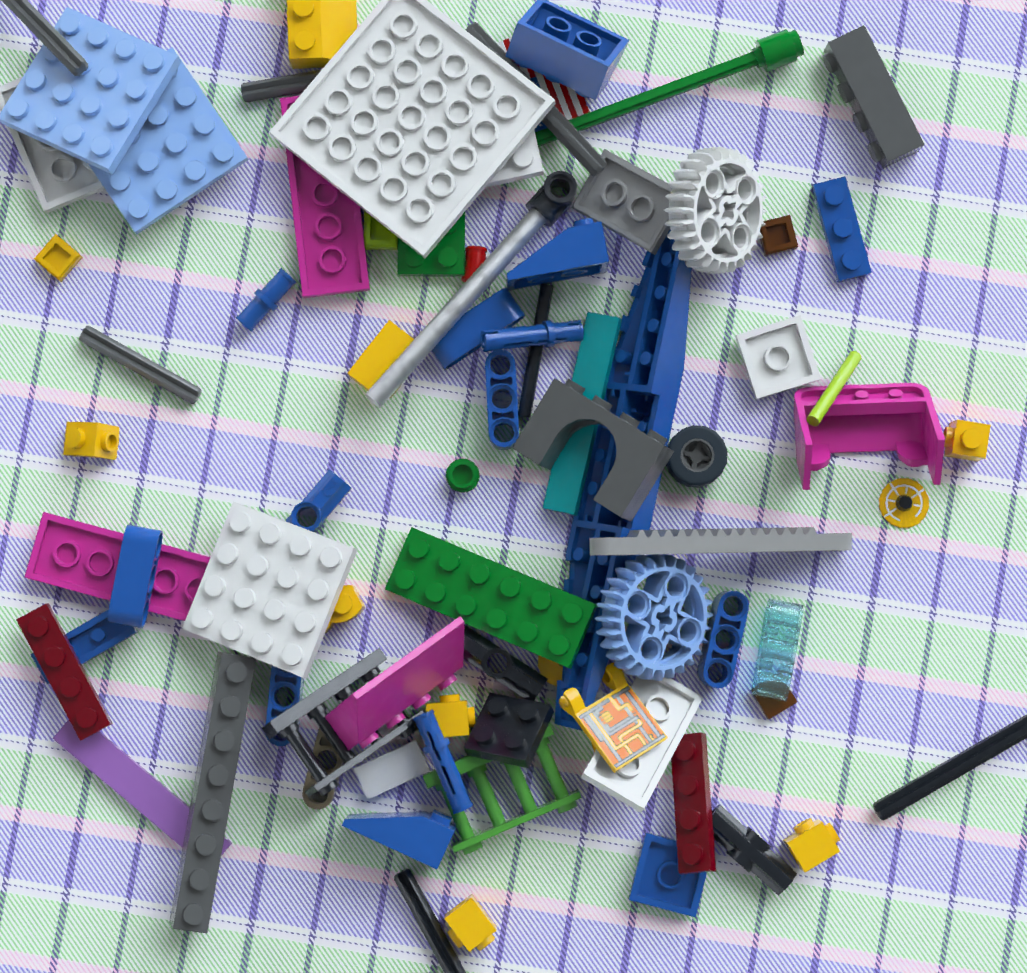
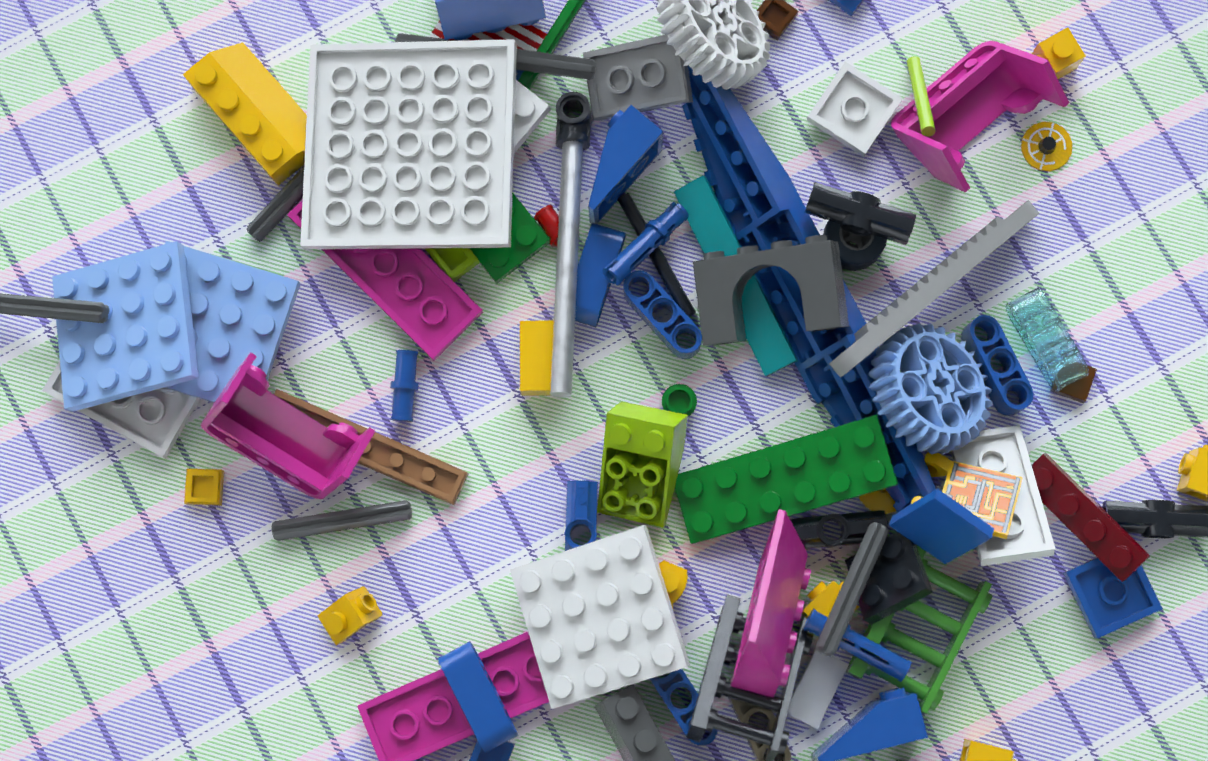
camera: 30 degrees left, 5 degrees down
(143, 267) = (281, 436): none -> dark pink windscreen
(201, 322) = (395, 458): none -> medium nougat tile
(395, 498) = (640, 462): none -> lime slope
(471, 718) = (852, 589): none -> dark grey axle
(573, 725) = (941, 526): none -> blue tile
(710, 442) = (860, 213): none -> black piece

